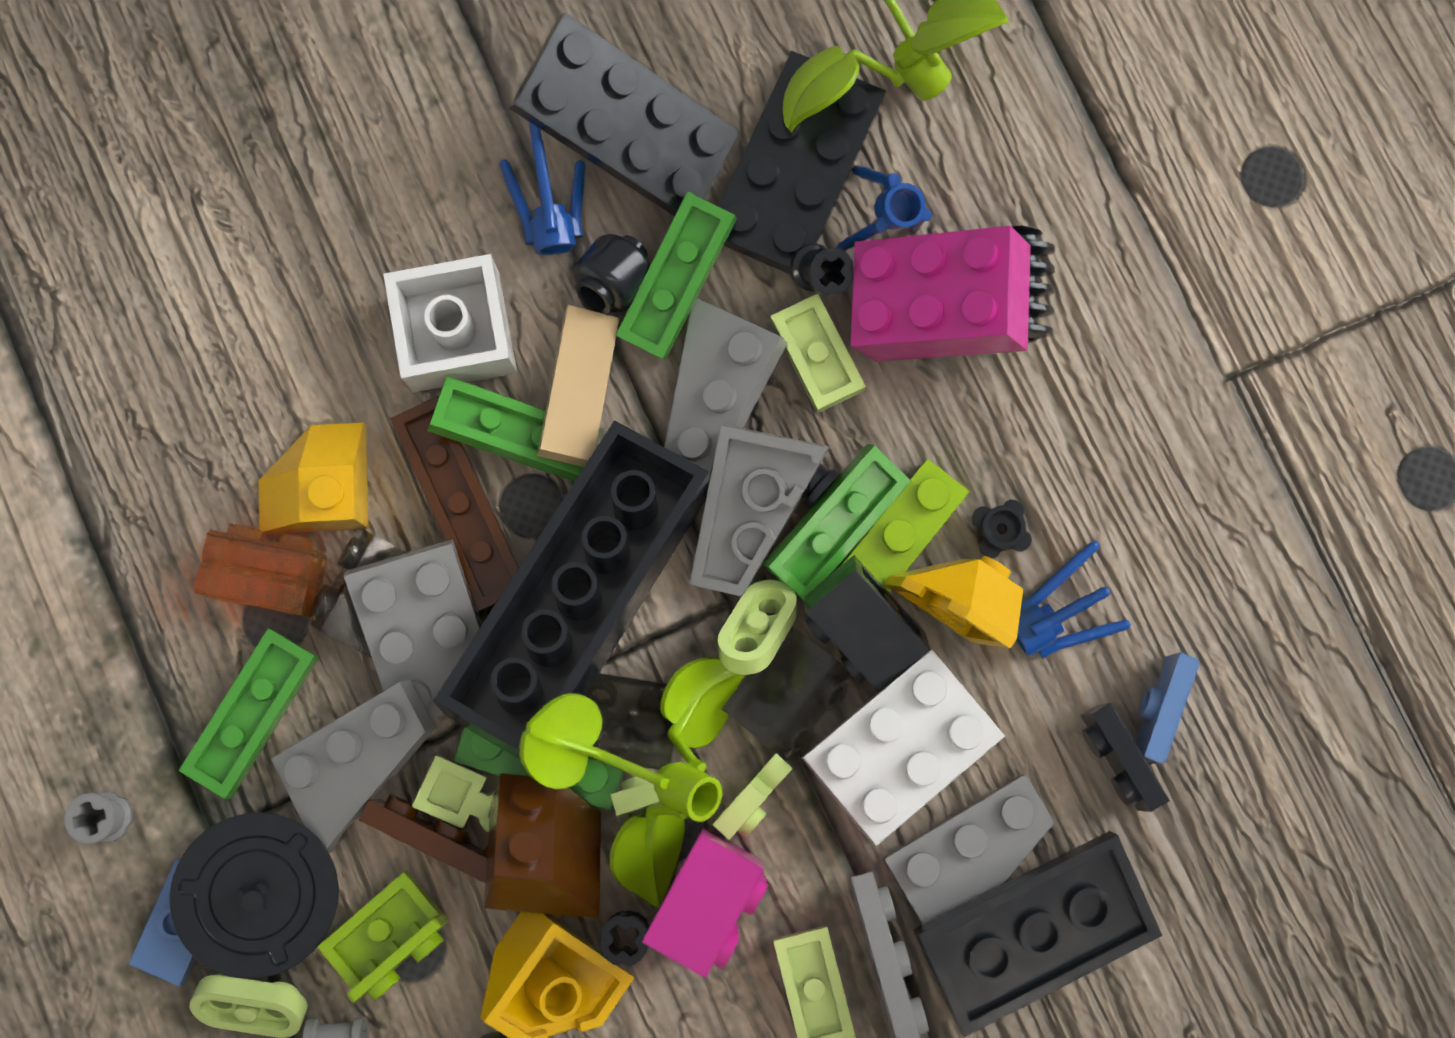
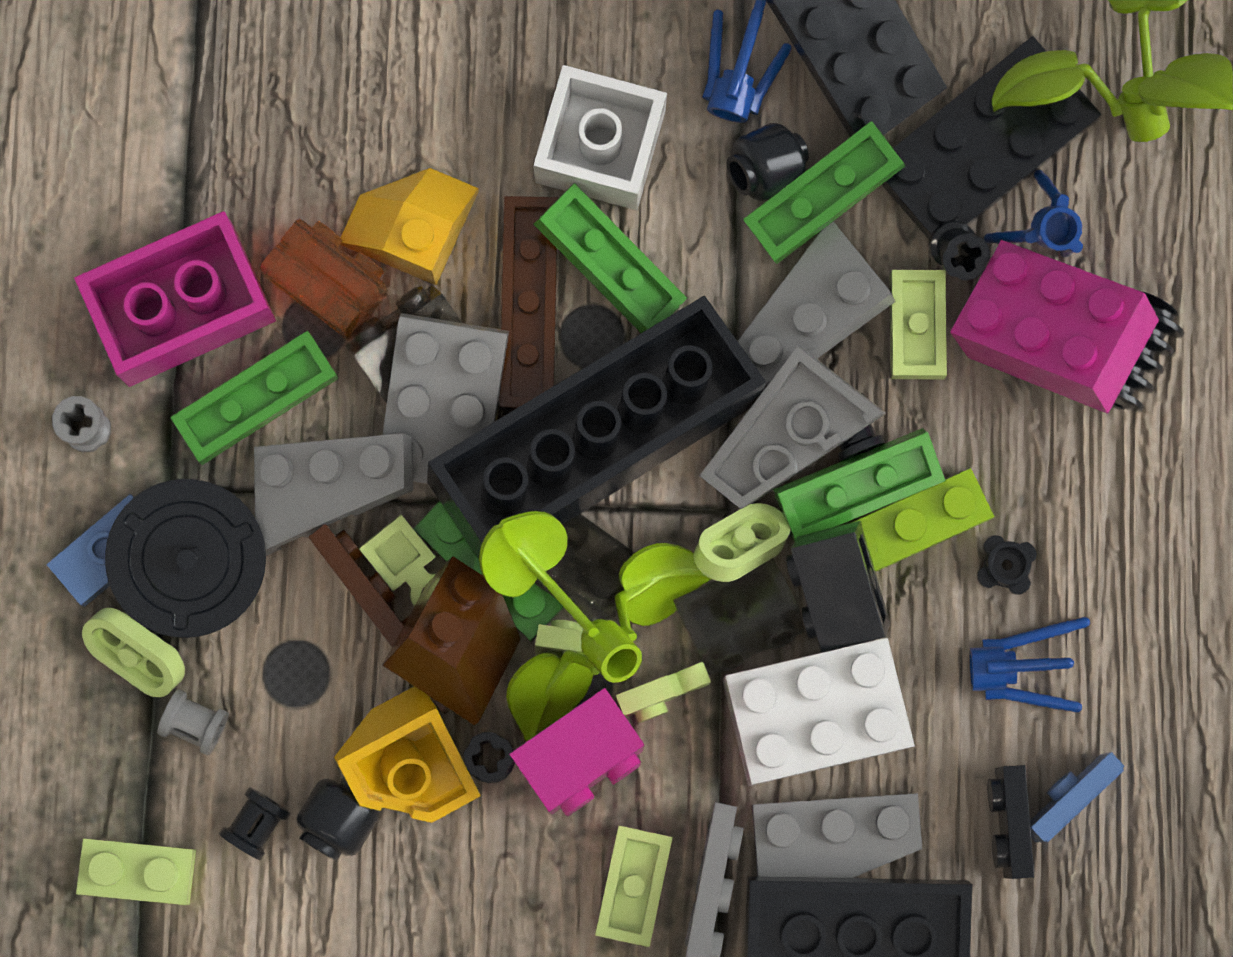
camera: 25 degrees right, 0 degrees up
(128, 661) = (175, 299): none -> dark pink brick
(383, 935) = (278, 651): lime bracket -> none
(578, 386) = (687, 248): tan tile -> none
(966, 597) = (942, 608): yellow slope -> none

